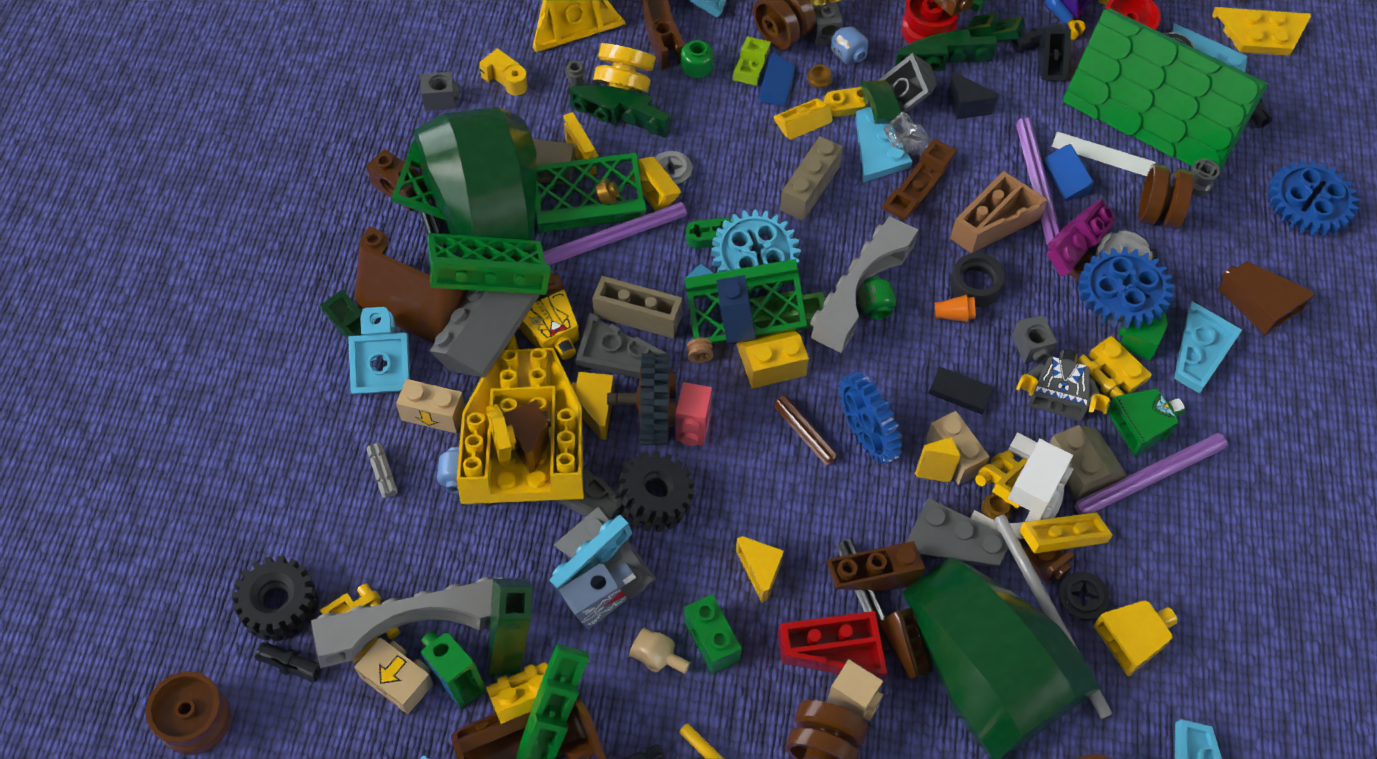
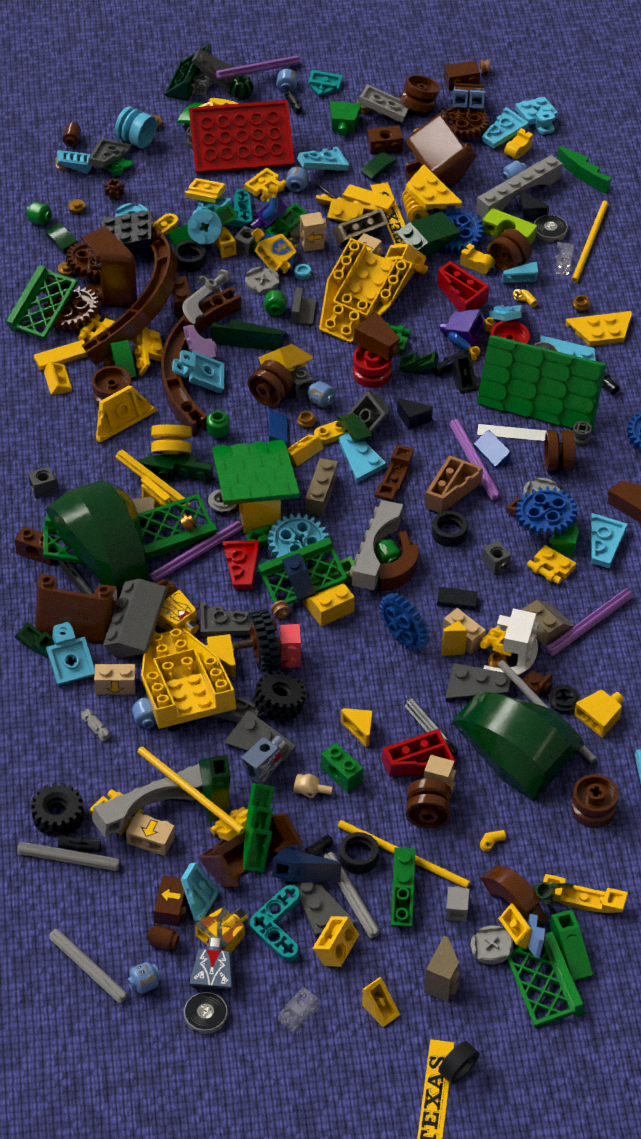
camera: 15 degrees left, 10 degrees down
(188, 713) = (31, 880): reddish brown wheel -> none
(266, 680) = (68, 856): none -> light grey axle
(452, 668) = (188, 820): green torso -> none
(470, 627) = (191, 790): none -> yellow piece
(478, 273) = (128, 581): green fence -> none
(502, 435) = (175, 677): yellow wing -> none
(505, 71) = (84, 460): yellow leg -> none
(530, 433) = (187, 677): reddish brown slope -> none
(575, 71) = (136, 450): dark grey pin -> none
(586, 121) = (142, 471): none -> yellow axle
(590, 553) = (253, 734): medium azure wing -> none
(637, 306) = (231, 590): dark tan brick -> none
(656, 184) = (218, 512): yellow slope -> none
(670, 260) = (242, 562): none -> red wing
(720, 149) = (256, 479): none -> green piece
(751, 61) = (255, 418): lime slope -> none
(806, 430) = (364, 642): reddish brown axle -> none
(878, 568) = (434, 708): reddish brown slope -> none
(890, 329) = (403, 569): none -> reddish brown arch
(907, 135) = (378, 445): clear leg -> none
(907, 642) = (461, 743): reddish brown slope -> none
(950, 47) = (390, 382): dark green slope -> none
(957, 309) = (441, 549): orange cone -> none
(1063, 387) = (521, 582): torso -> none
(1065, 532) = (543, 664): yellow plate -> none
(1079, 235) = (510, 486): magenta slope -> none
(1144, 418) = (577, 589): green torso -> none

